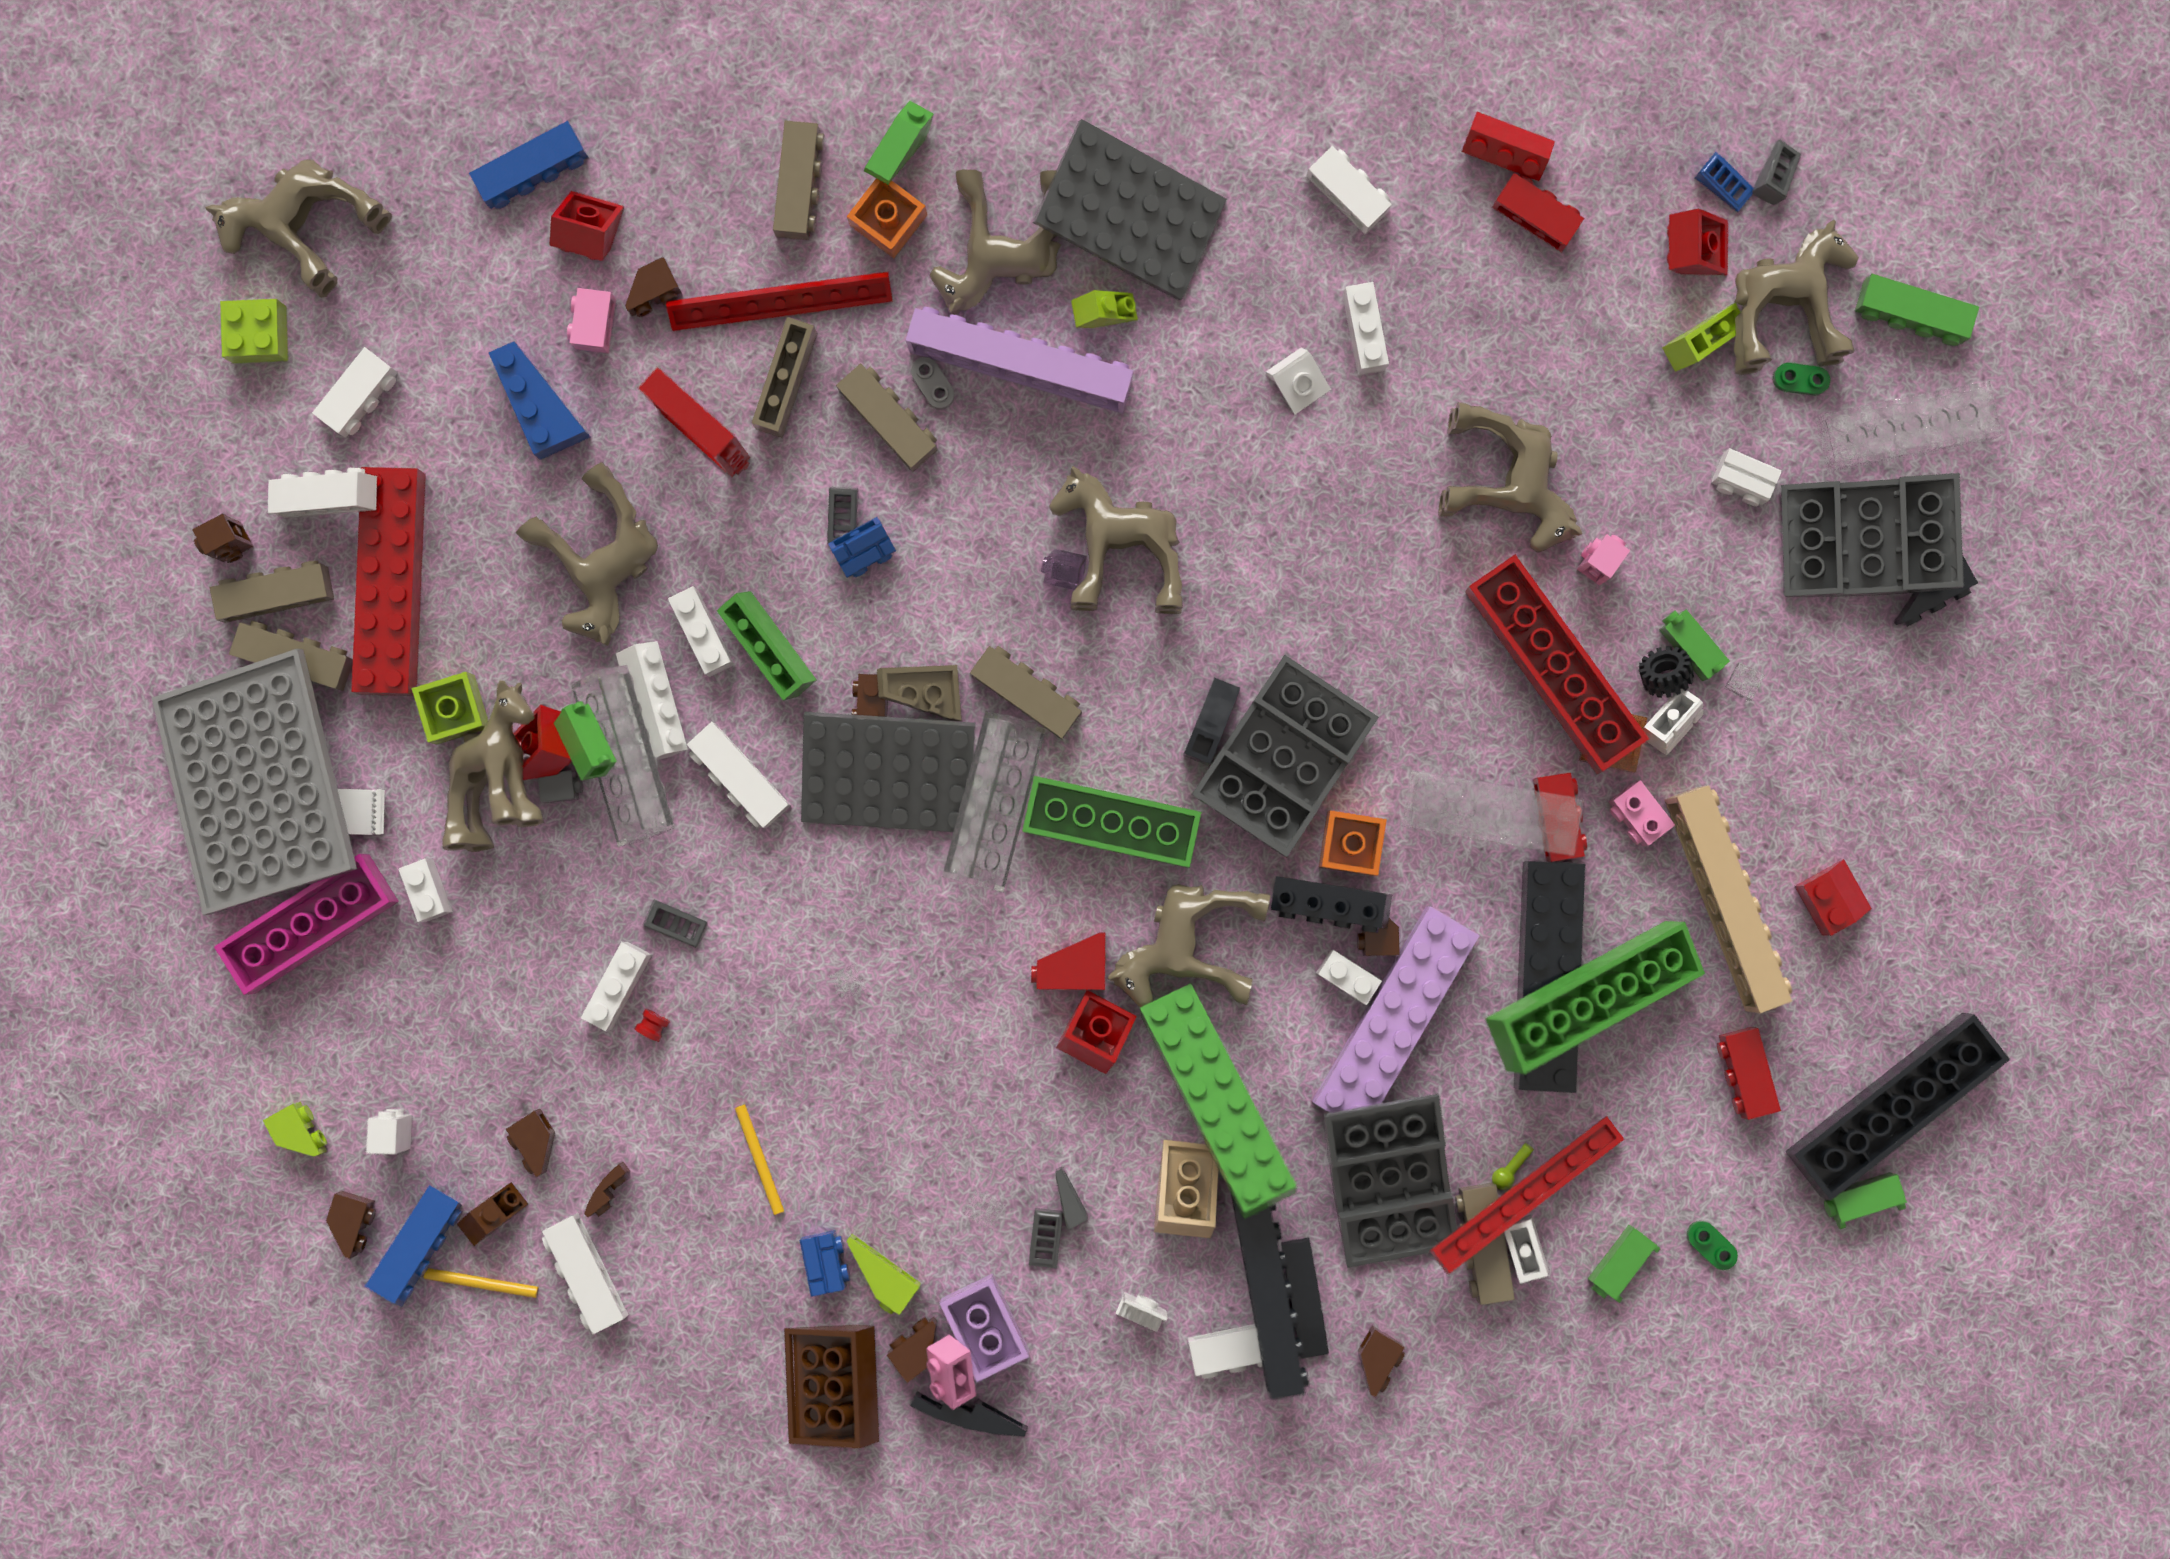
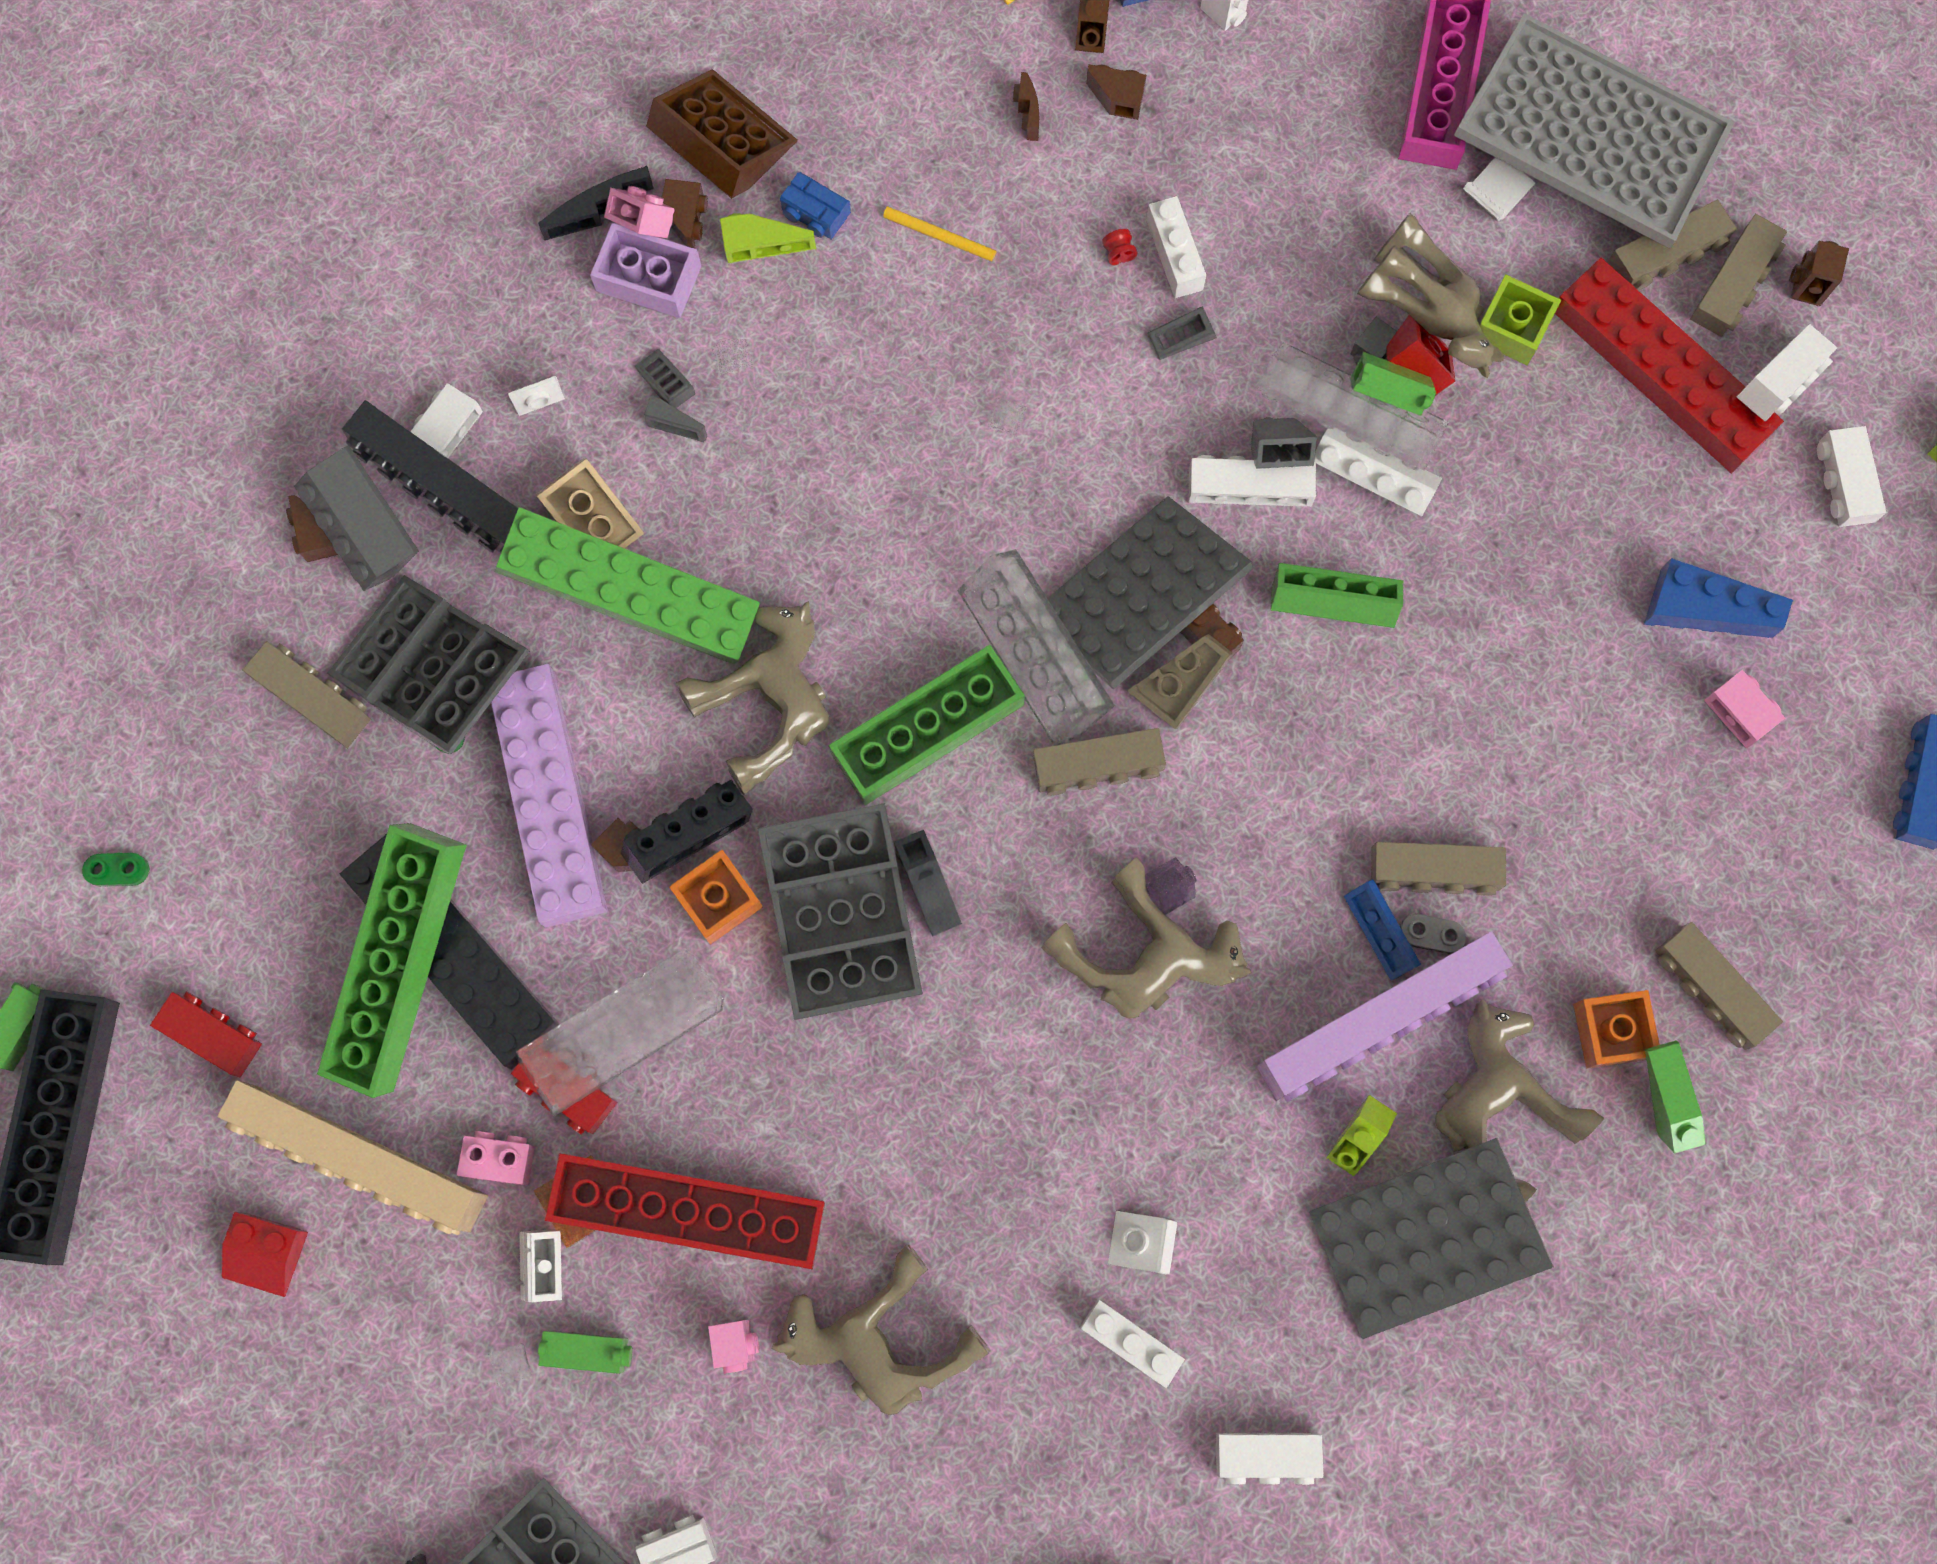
camera: 135 degrees right, 10 degrees down
(425, 890) = (1388, 180): white brick -> none
(584, 1273) = (982, 39): white brick -> none
(585, 225) = (1835, 779): red slope -> none
(603, 568) = (1521, 530): dark tan animal -> none
(654, 283) = (1733, 786): reddish brown slope -> none
(695, 422) = (1579, 696): red window -> none
(696, 778) = (1282, 443): none -> dark grey torso
(701, 631) = (1397, 557): white brick -> none
(779, 301) = (1621, 875): red plate -> none
(784, 377) = (1551, 814): dark tan brick -> none
(841, 491) = (1398, 781): dark grey slope -> none
(862, 548) = (1345, 743): blue brick -> none
(962, 414) = (1382, 930): none -> blue plate
(1073, 967) = (844, 590): red slope -> none
(1096, 1032) = (777, 559): red slope -> none
(1305, 1297) = (424, 524): black slope -> none
(1347, 1330) = (356, 518): none -> dark grey slope
(1348, 977) = (616, 790): white brick -> none
(1504, 1177) = (340, 761): lime bar -> none
(1526, 1195) = (305, 757): red plate -> none
(1526, 1250) = (269, 717): white brick -> none
(1621, 1263) = (179, 783): bright green brick -> none
(1668, 682) = (570, 1298): black tyre -> none

